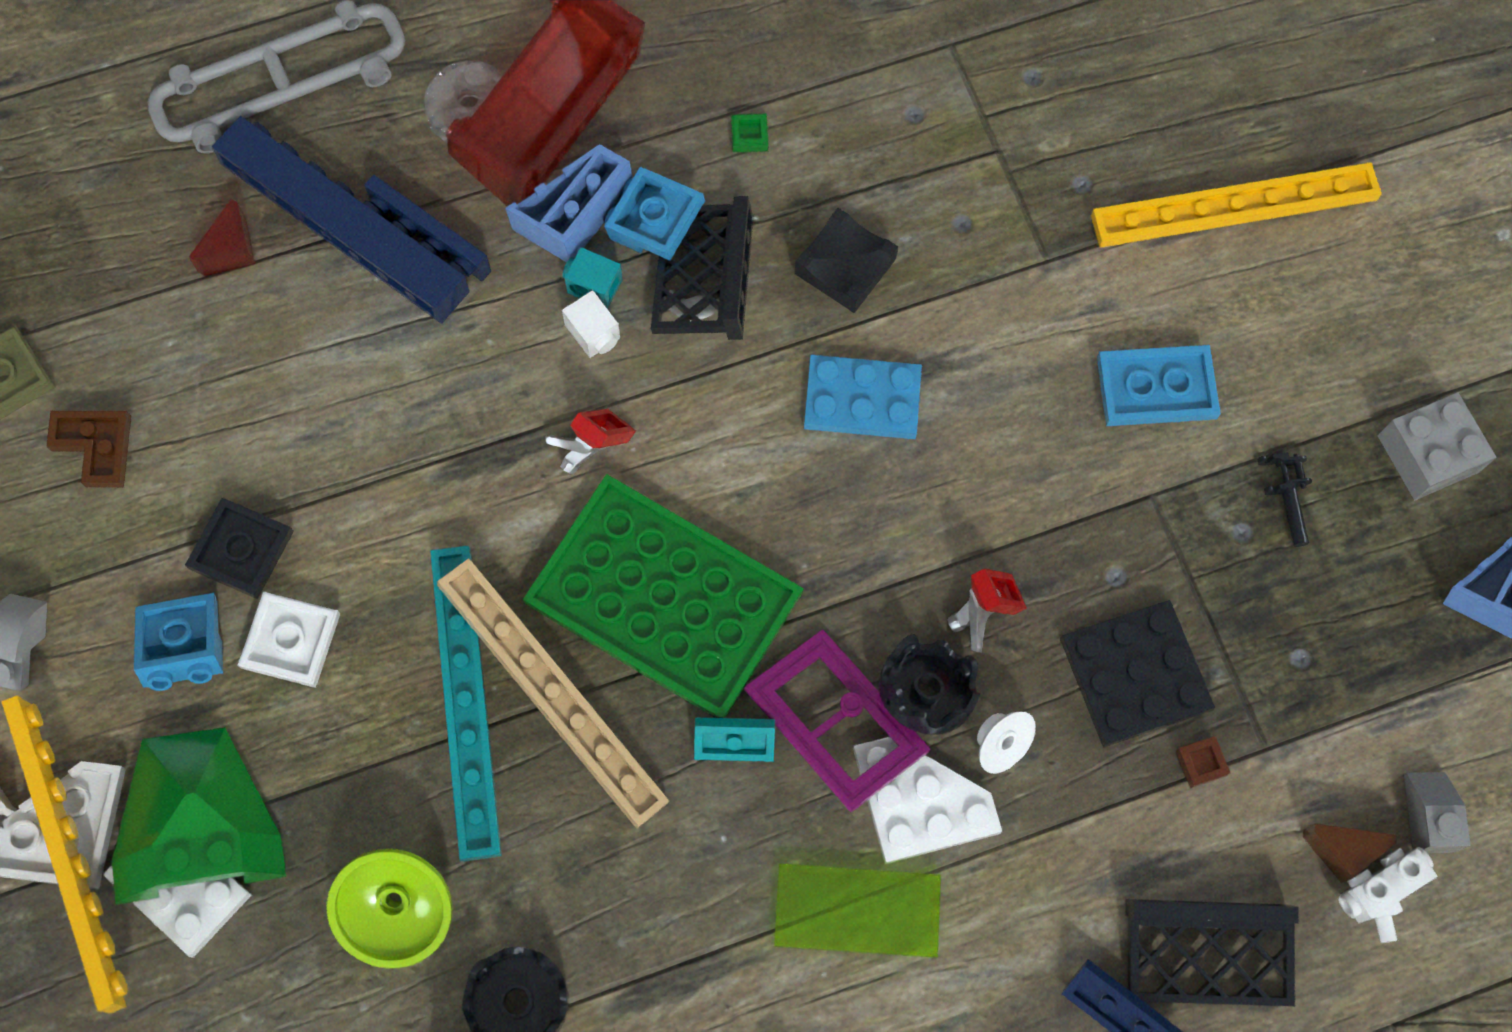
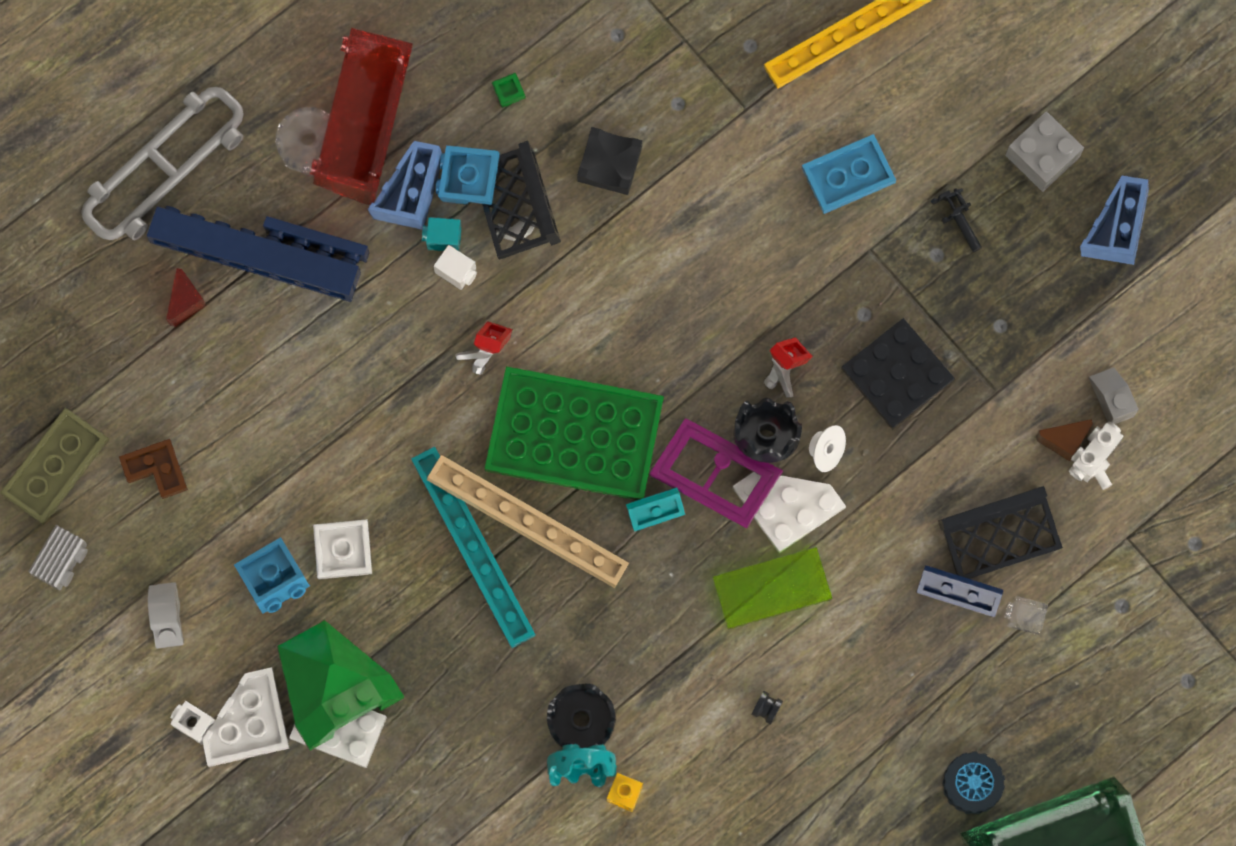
camera: 15 degrees left, 5 degrees up
(69, 866) = (271, 738): yellow plate -> none
(239, 548) = (284, 502): black plate -> none
(387, 930) = (485, 706): lime dish -> none
(863, 397) = (655, 251): dark azure plate -> none
(1202, 762) = (958, 416): copper plate -> none

